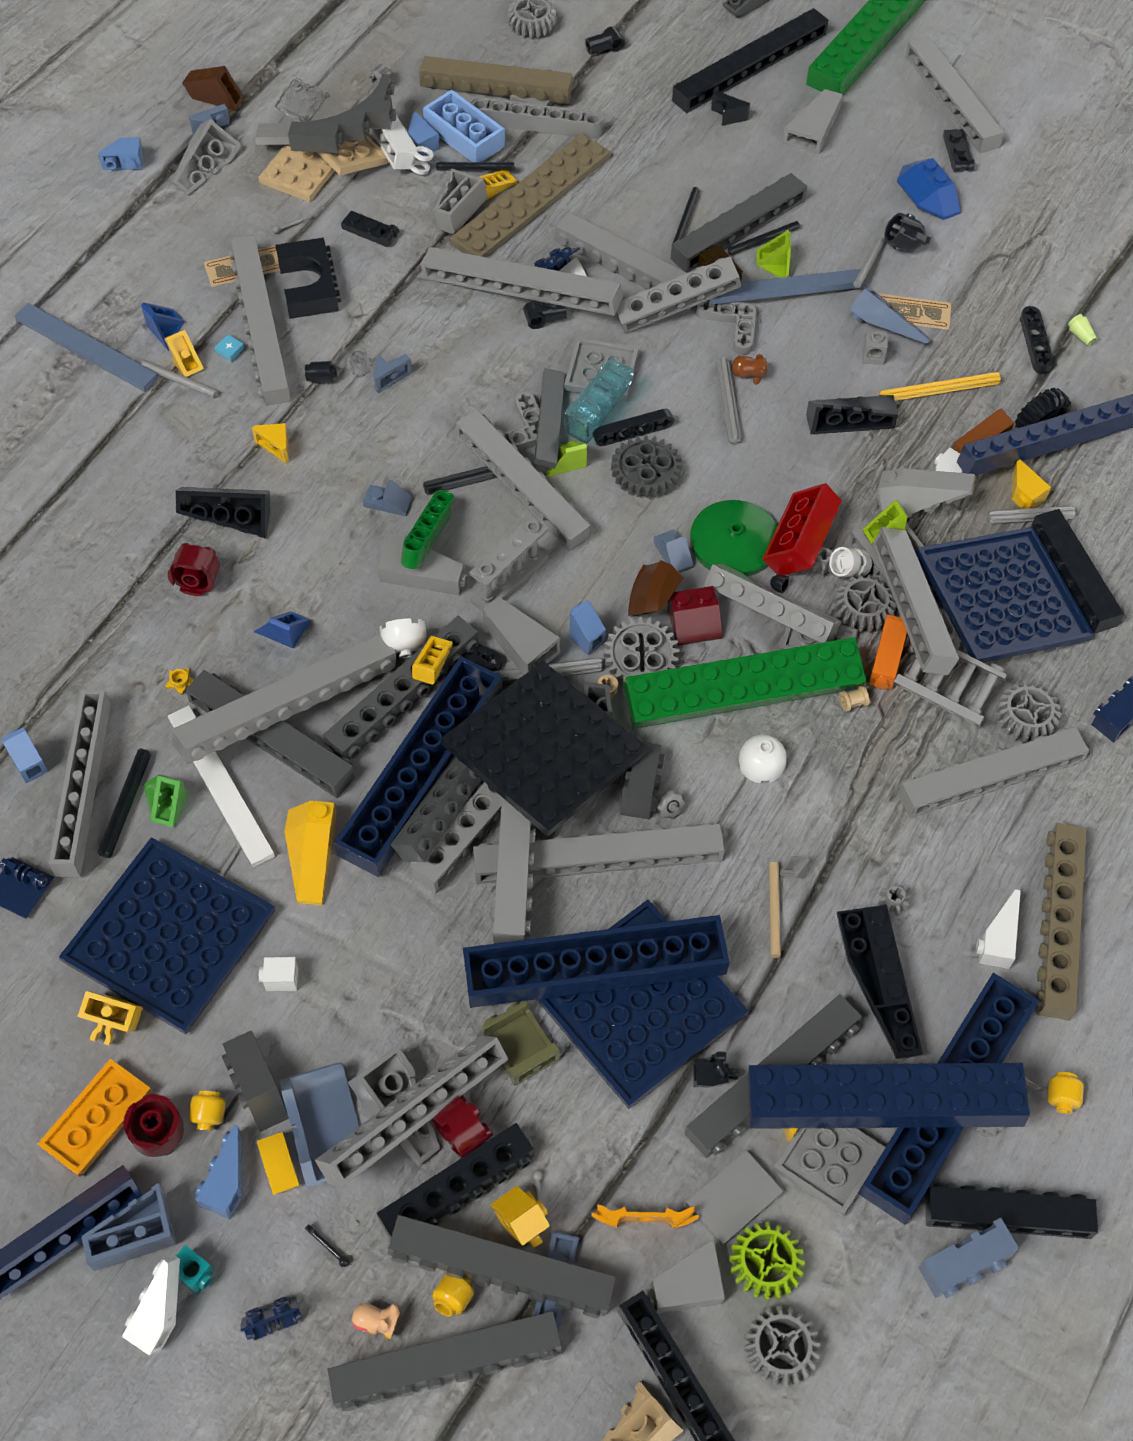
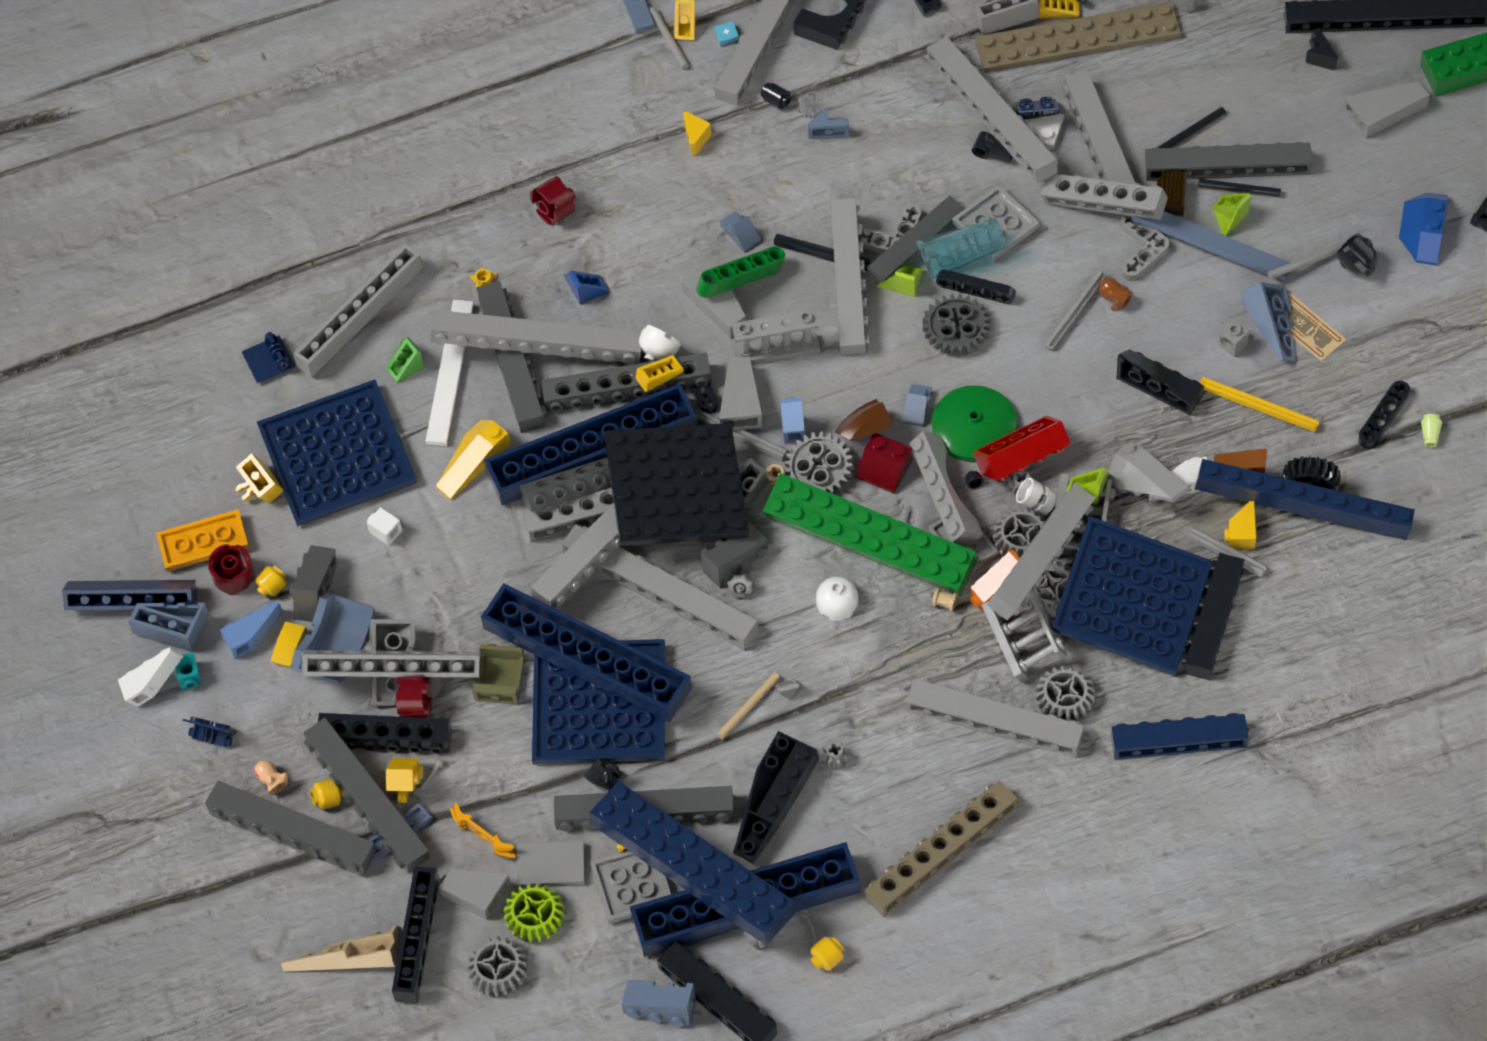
camera: 45 degrees right, 0 degrees up
(24, 755) = (336, 268): medium blue slope -> none
(124, 803) = (378, 344): black axle -> none
(233, 508) = (616, 165): black wedge -> none
(343, 1260) = (280, 731): black hinge -> none
(999, 941) = (888, 826): white slope -> none

